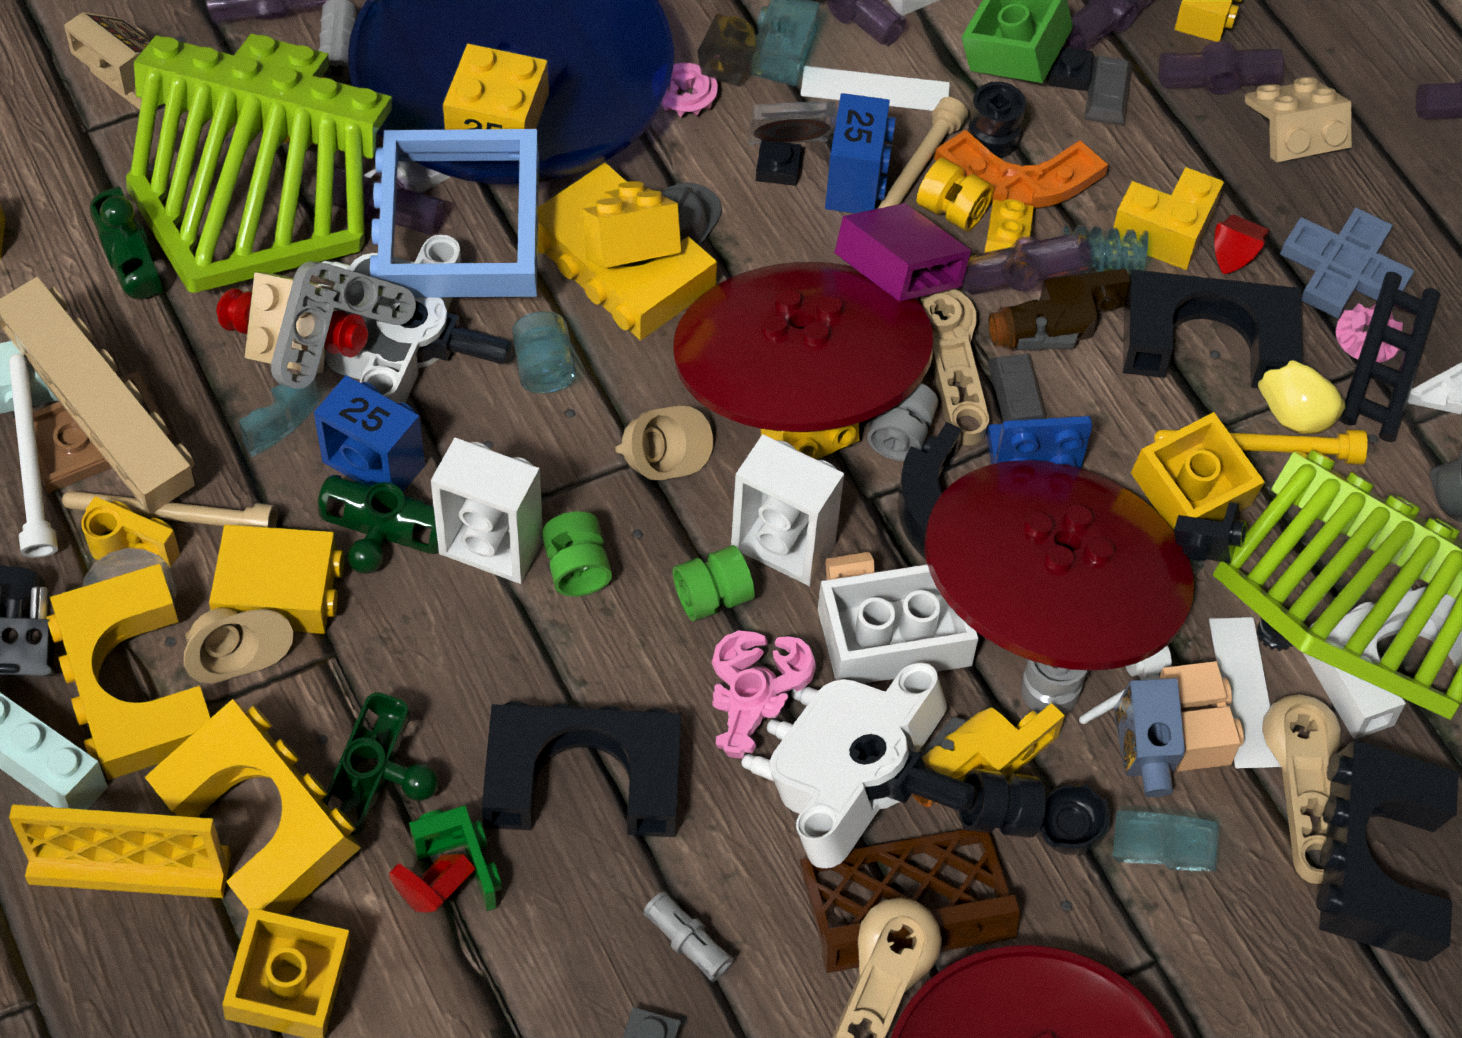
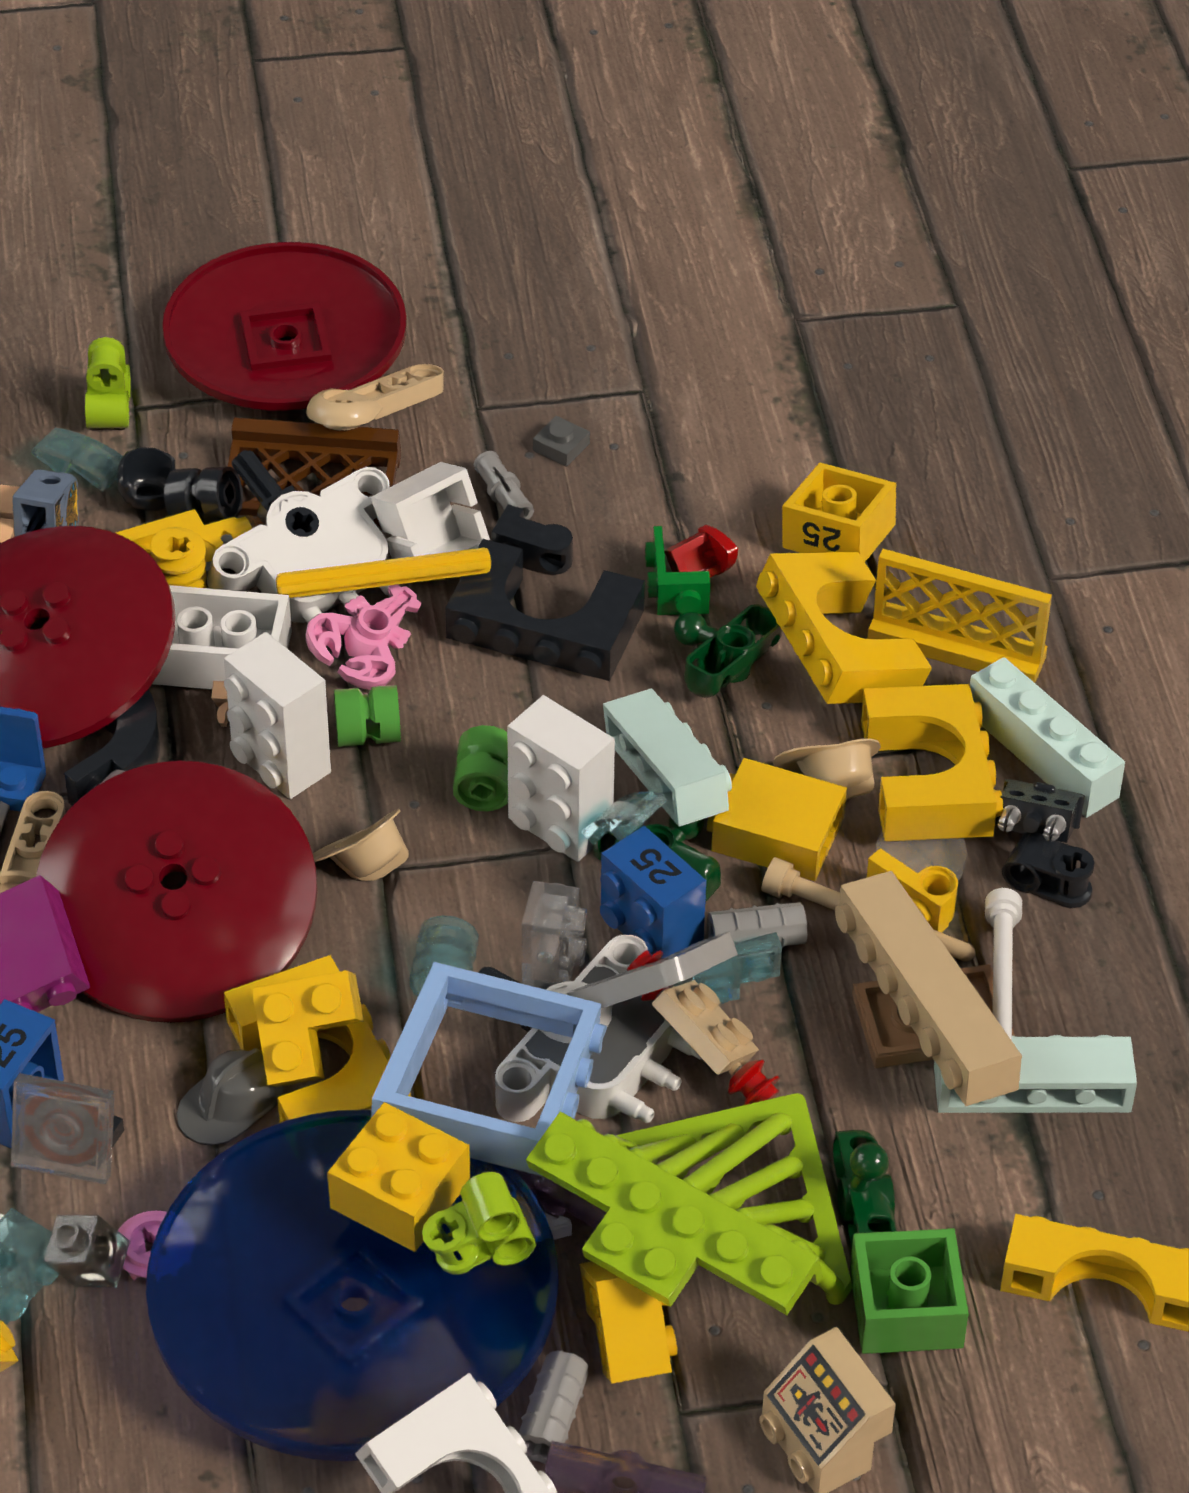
camera: 160 degrees left, 10 degrees down
(73, 161) = (908, 1291): none -> bright green brick
(270, 461) = (747, 923): none -> light grey axle
(397, 590) = (667, 756): none -> light aqua brick
(405, 471) = (625, 815): none -> clear light blue slope
(414, 67) = (481, 1227): none -> lime piece
(449, 379) = (552, 934): none -> clear brick
(626, 858) = (544, 546): none -> black leg
(739, 815) = (422, 517): none -> white piece
(755, 720) = (384, 572): none -> yellow axle
(971, 674) = (180, 556): none -> yellow piece
(1188, 939) = (107, 385): none -> lime piece

